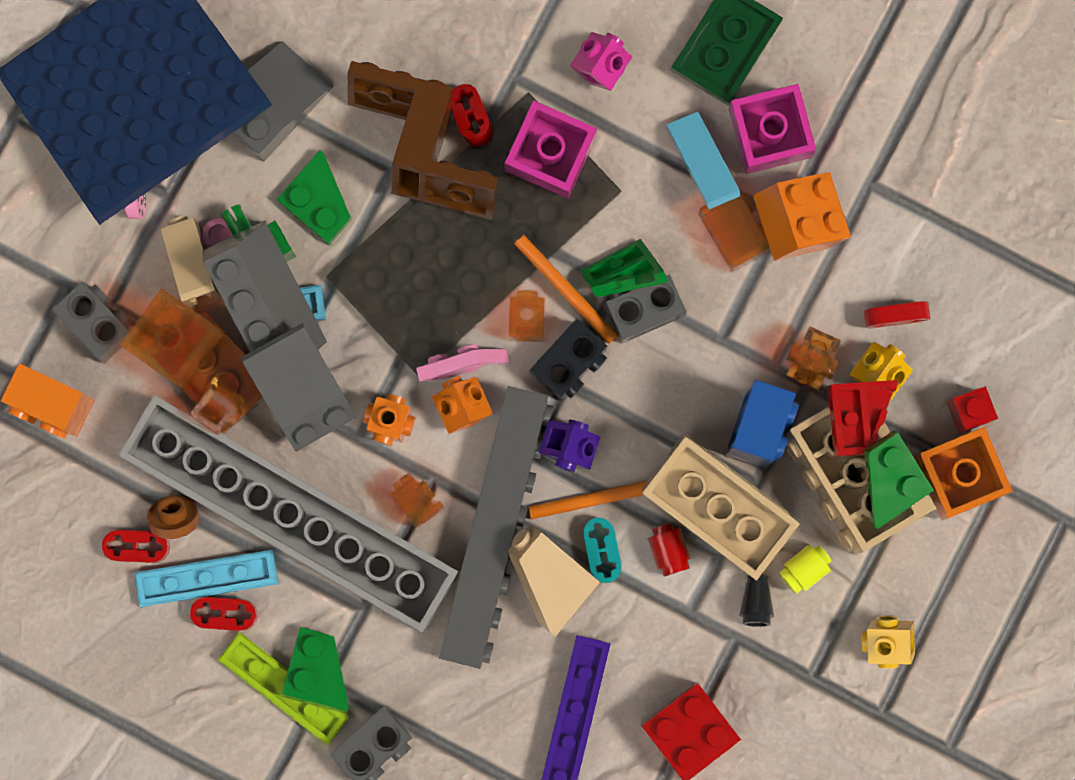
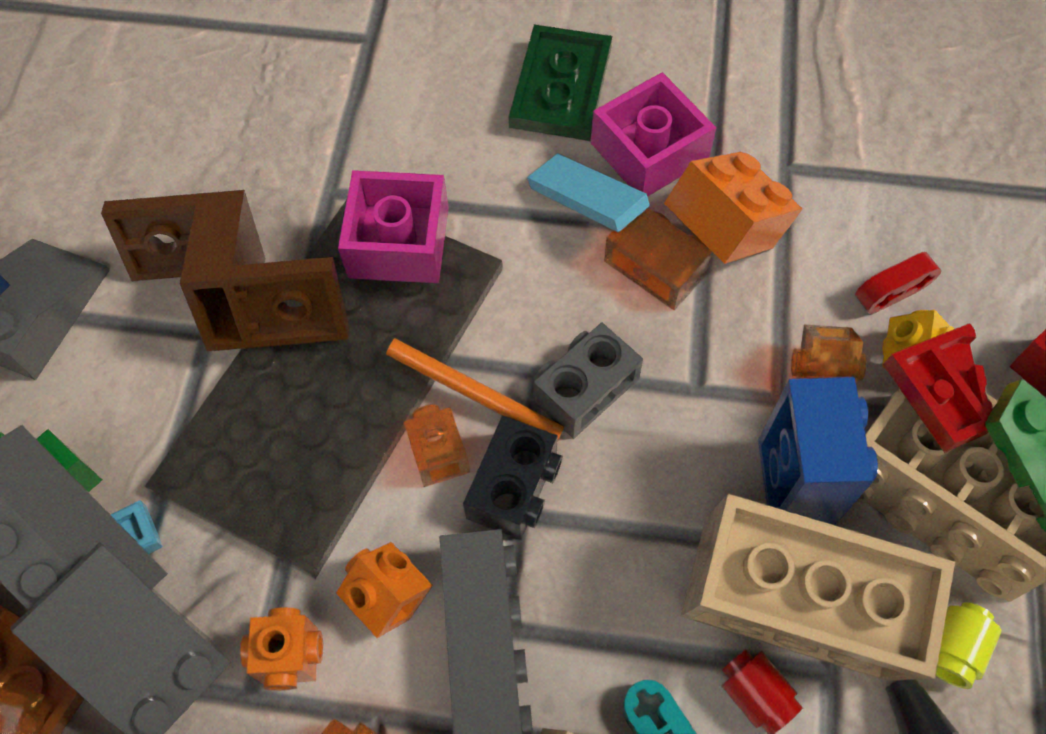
camera: 20 degrees left, 20 degrees down
(317, 200) = (113, 399): green wing -> none
(467, 361) = (365, 528): bright pink wing -> none
(477, 112) = (291, 231): red beam -> none
(569, 444) = (557, 589): dark purple brick -> none
(586, 500) = (610, 665): orange bar -> none
(601, 60) = (424, 132): dark pink brick -> none
(624, 271) = (543, 341): green wing -> none

